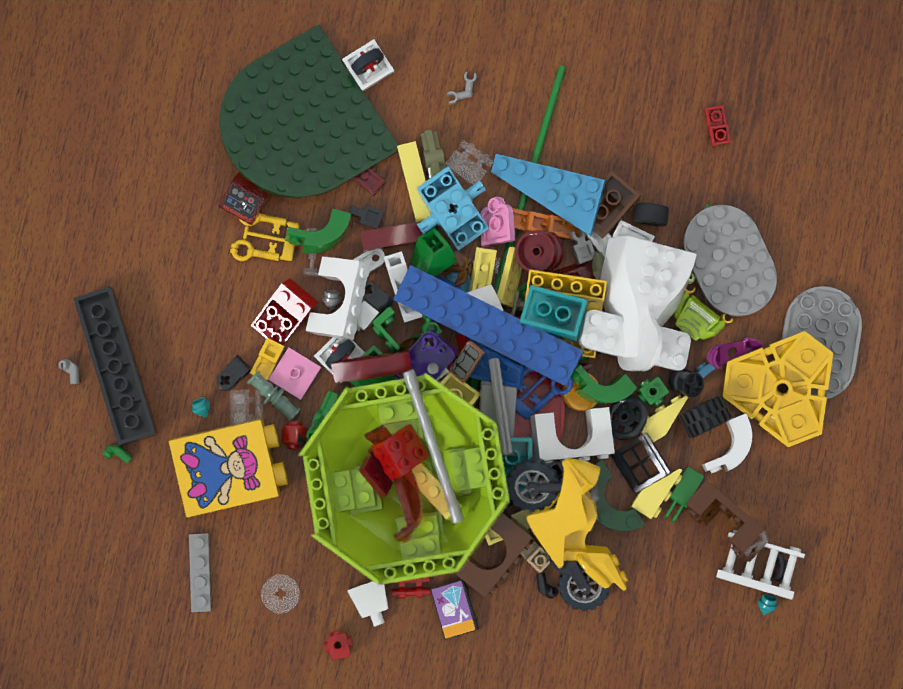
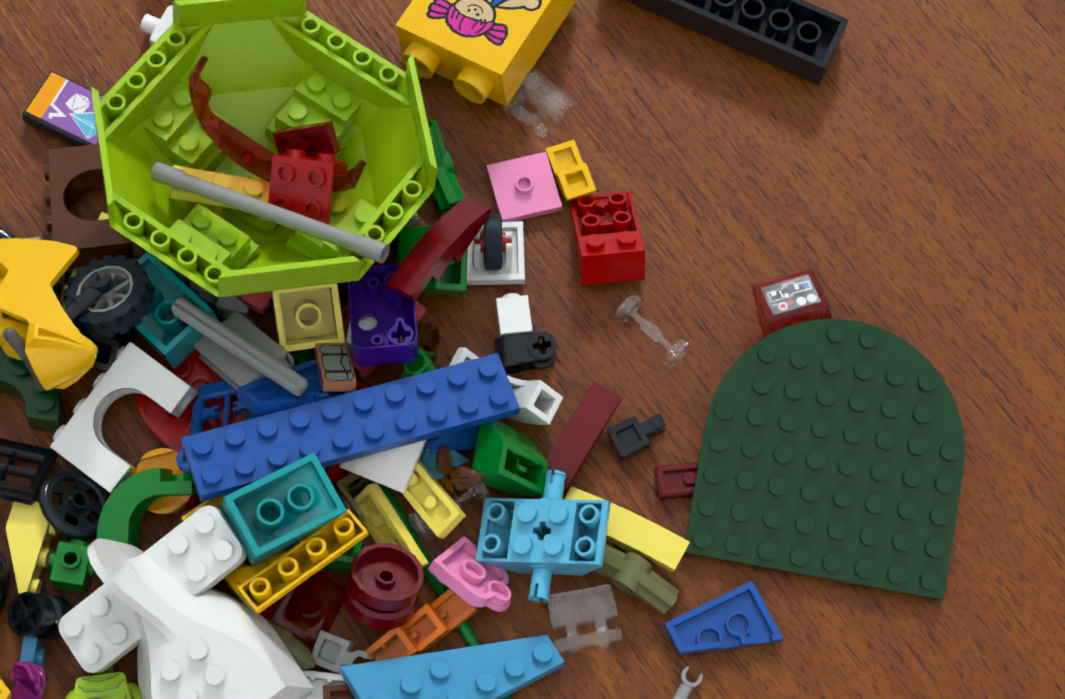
camera: 130 degrees right, 15 degrees down
(201, 407) = (586, 55): teal plate -> none
(236, 371) = (591, 122): black piece -> none
(273, 395) = (519, 137): sand green piece -> none
(288, 250) = (691, 321): yellow piece -> none
(294, 435) = (453, 120): red head -> none
(323, 239) = (650, 359): green arch -> none
(331, 298) = (573, 304): light grey plate -> none
(343, 321) = (571, 337): white arch -> none
(367, 258) = (573, 383): white plate -> none
(368, 65) = (831, 610): white plate -> none
(386, 319) = (466, 316): green bracket -> none
(415, 104) = (724, 623): none -> blue wing

